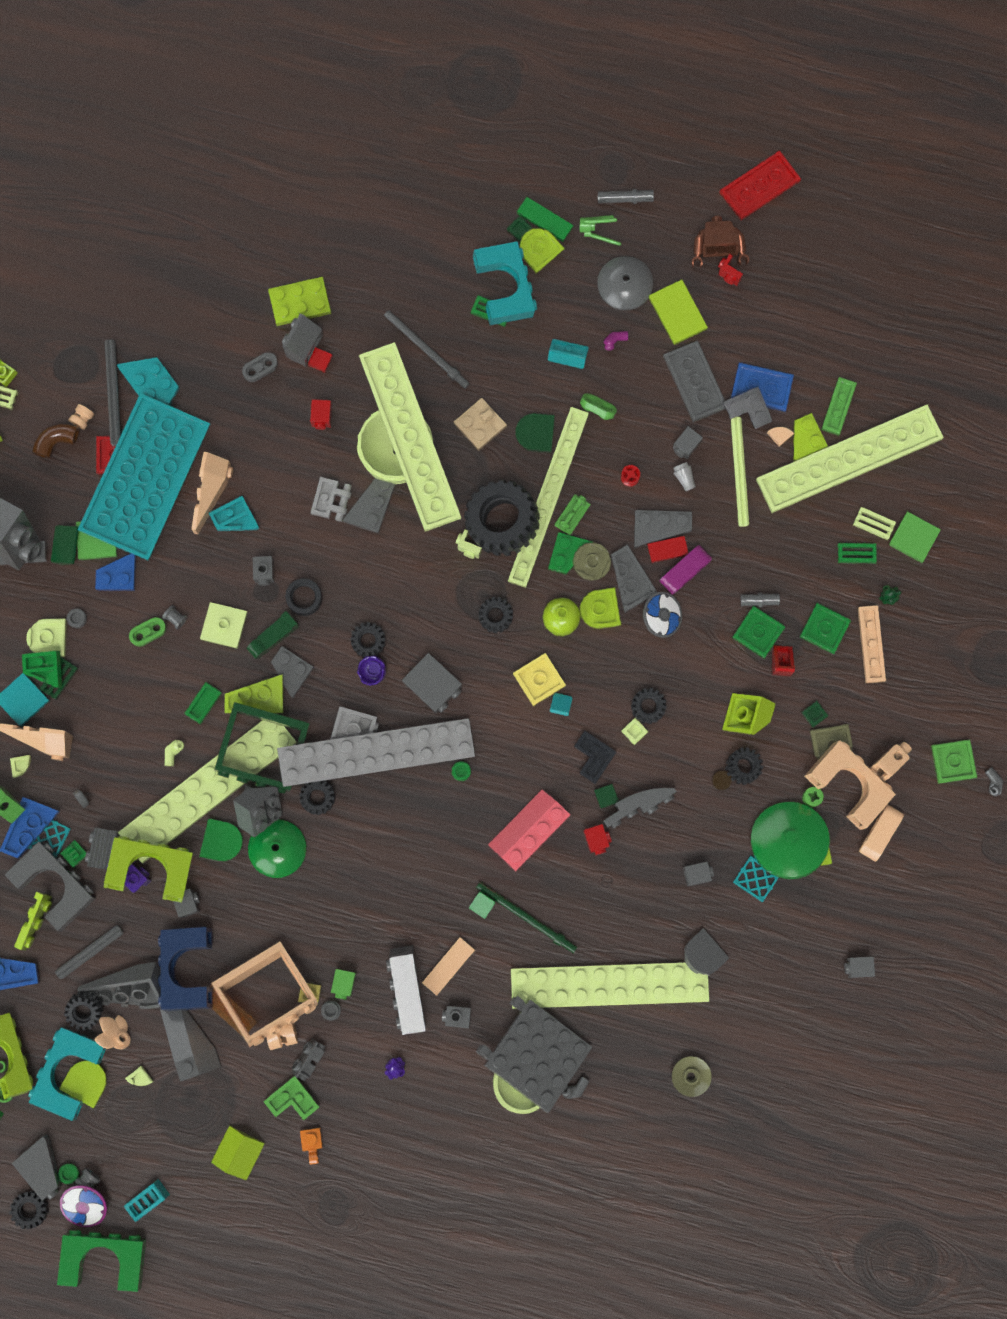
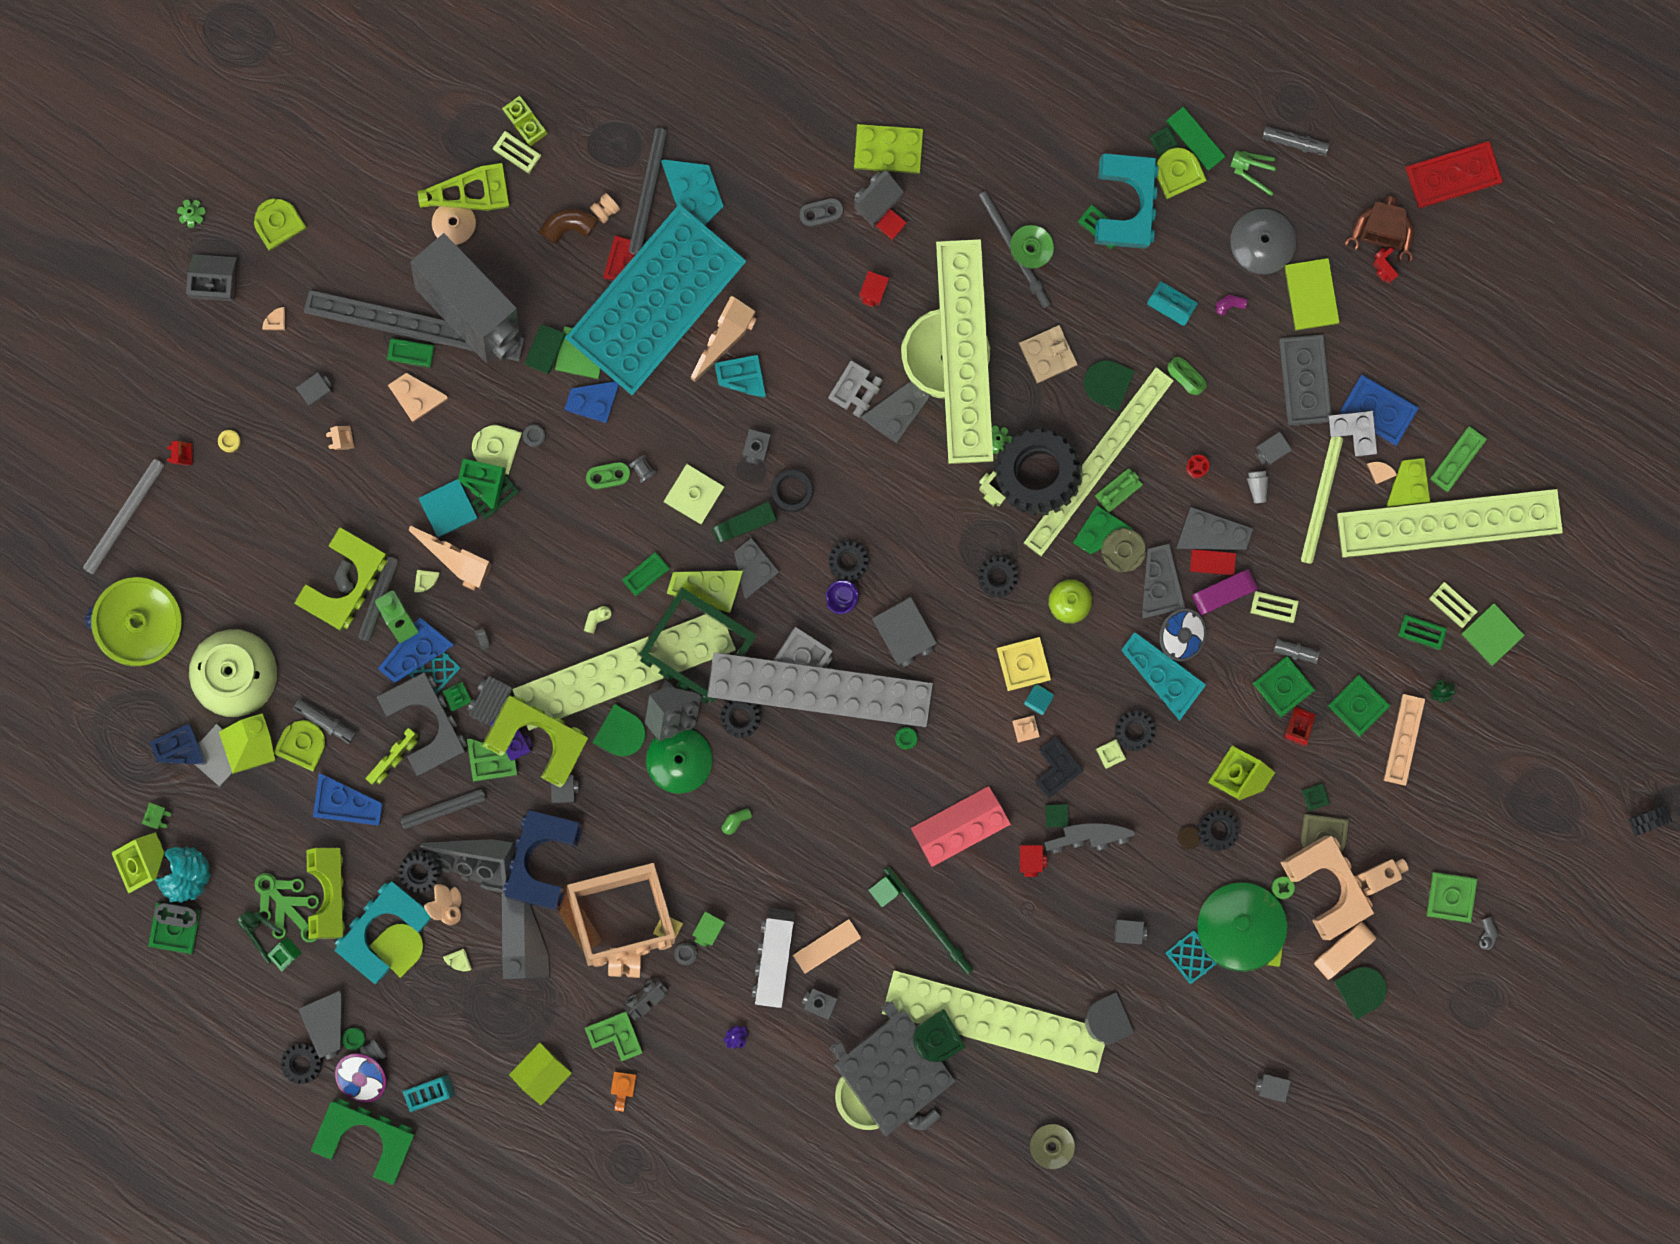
camera: 15 degrees right, 5 degrees up
(117, 902) = (487, 764): none -> bright green wing
(338, 884) = (733, 821): none -> bright green arm
(442, 335) = (1038, 239): none -> bright green dish
(463, 500) = (1001, 434): none -> bright green plant
(558, 732) = (1025, 729): none -> light nougat tile
(565, 1014) = (937, 1038): none -> dark green tile
(600, 609) = (1116, 606): lime tile -> none
(663, 655) = (1166, 677): none -> teal wing
(729, 570) = (1255, 603): none -> yellowish green tile
(906, 862) = (1361, 990): none -> dark green tile

